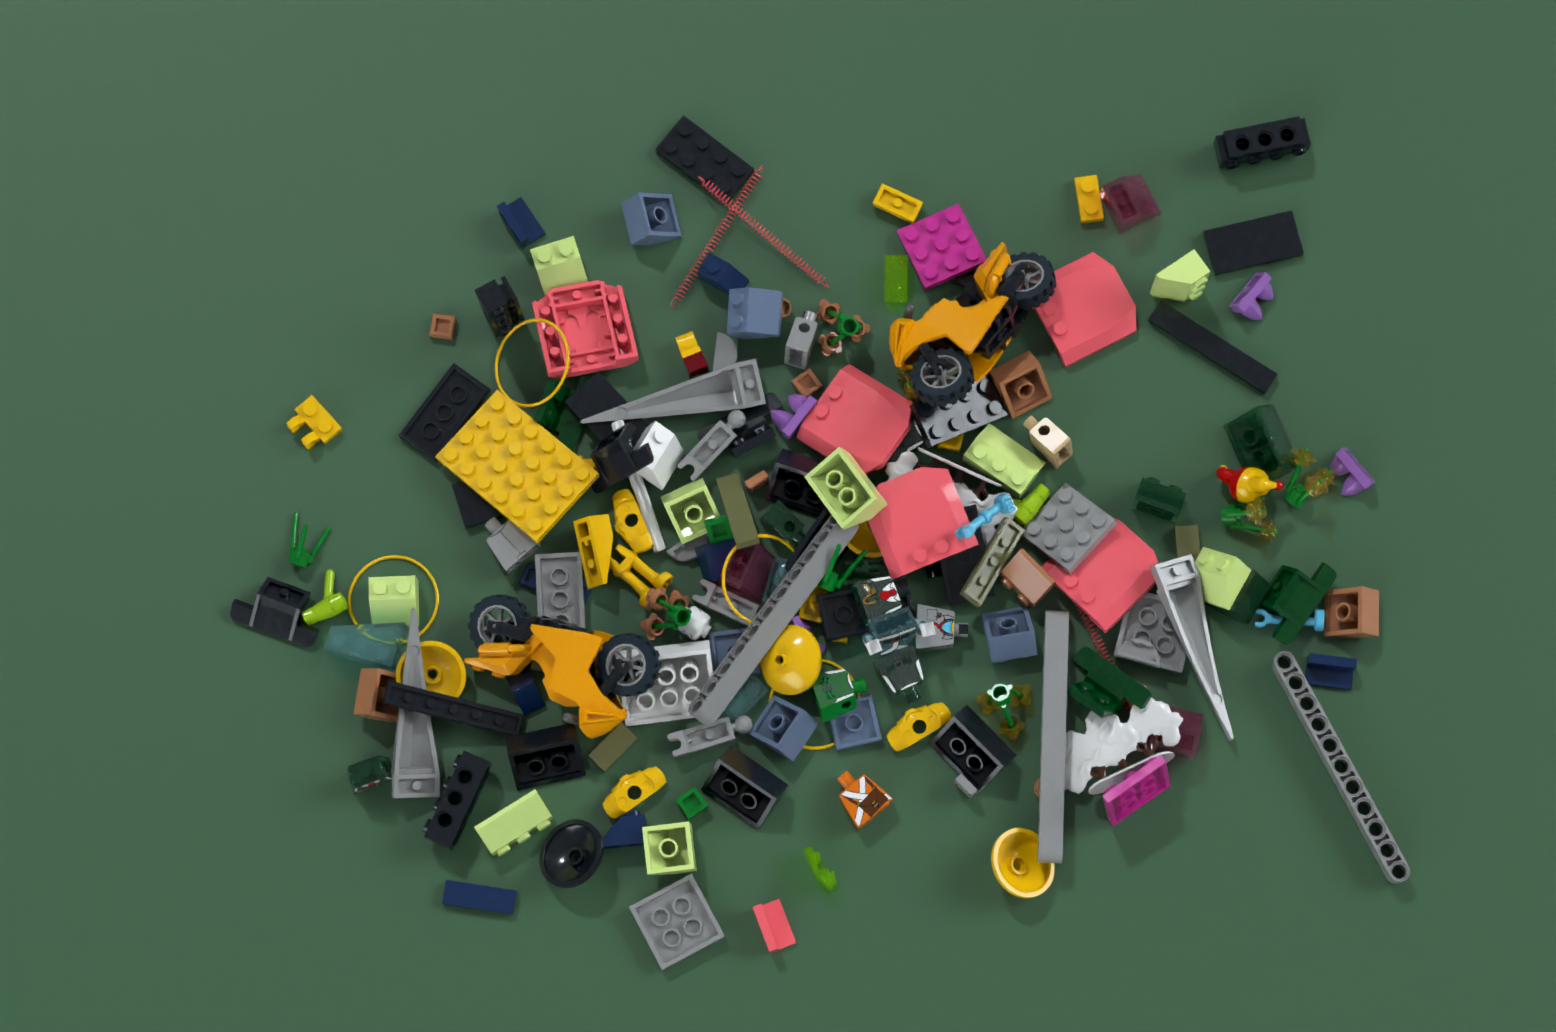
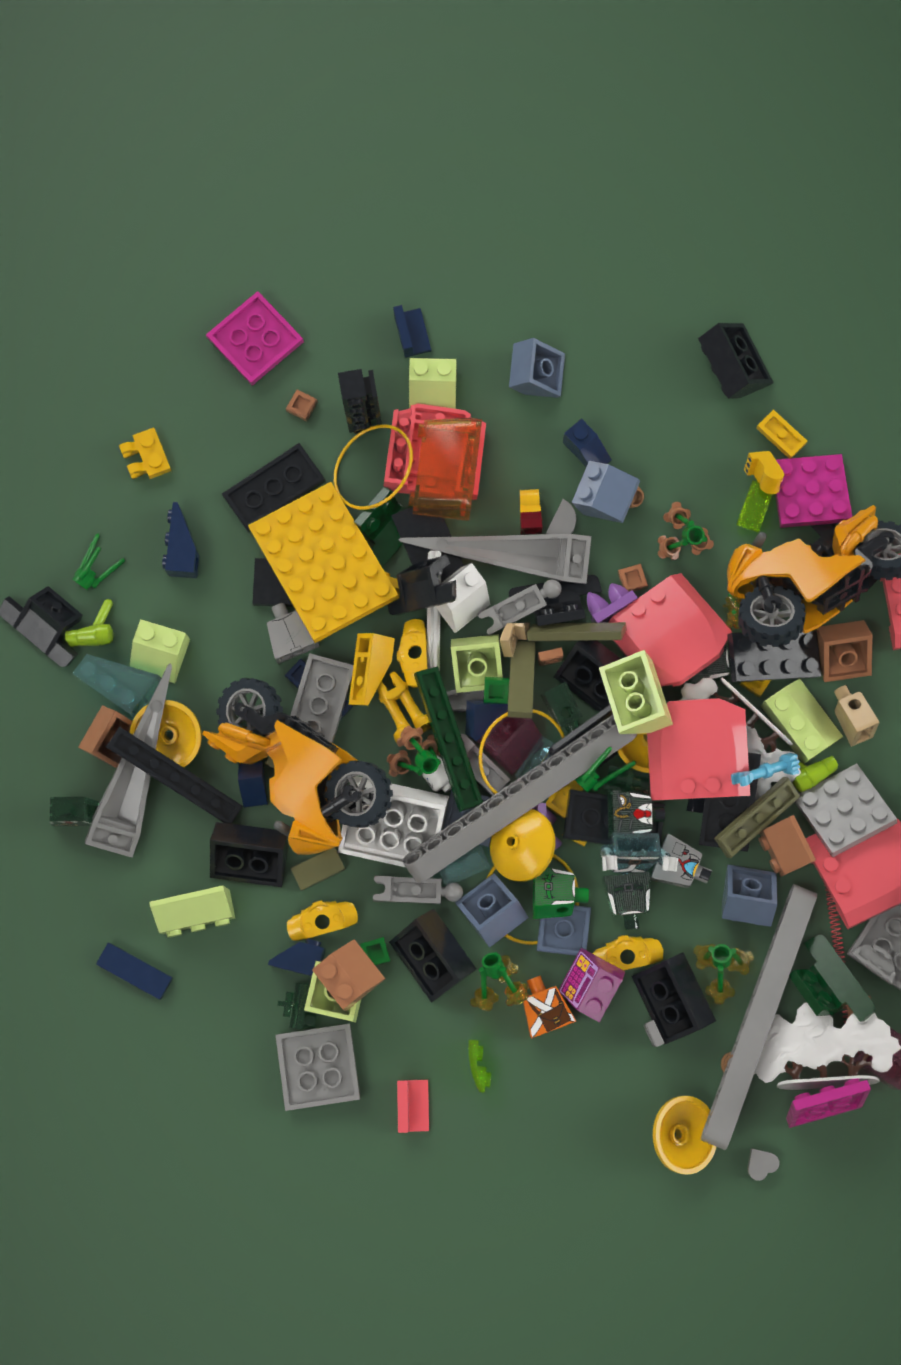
camera: 20 degrees right, 0 degrees up
(375, 278) = (254, 338): none -> dark pink plate
(382, 501) = (182, 554): none -> dark blue slope
(395, 557) = (176, 609): yellow piece -> none
(460, 813) = (144, 883): black brick -> none
(564, 847) = (231, 954): black dish -> none
(601, 340) = (446, 468): none -> clear orange windscreen
(637, 875) = (299, 1017): none -> clear green hips
(676, 827) = (348, 974): none -> nougat slope
(690, 588) = (448, 739): none -> dark green tile
(701, 155) = (608, 331): black plate -> none
(712, 240) = (595, 404): coral piece -> none
(713, 475) = (510, 635): none -> tan slope
(762, 231) = (639, 417): coral piece -> none
(773, 450) = (577, 631): none -> olive tile
(801, 340) = (642, 534): light grey torso -> none
(812, 776) = (501, 969): none -> plant
(831, 148) = (734, 359): none -> black slope
(894, 243) = (765, 470): none -> yellow leg
(895, 761) = (591, 984): none -> magenta slope
(1099, 865) = (761, 1164): none -> light grey tile

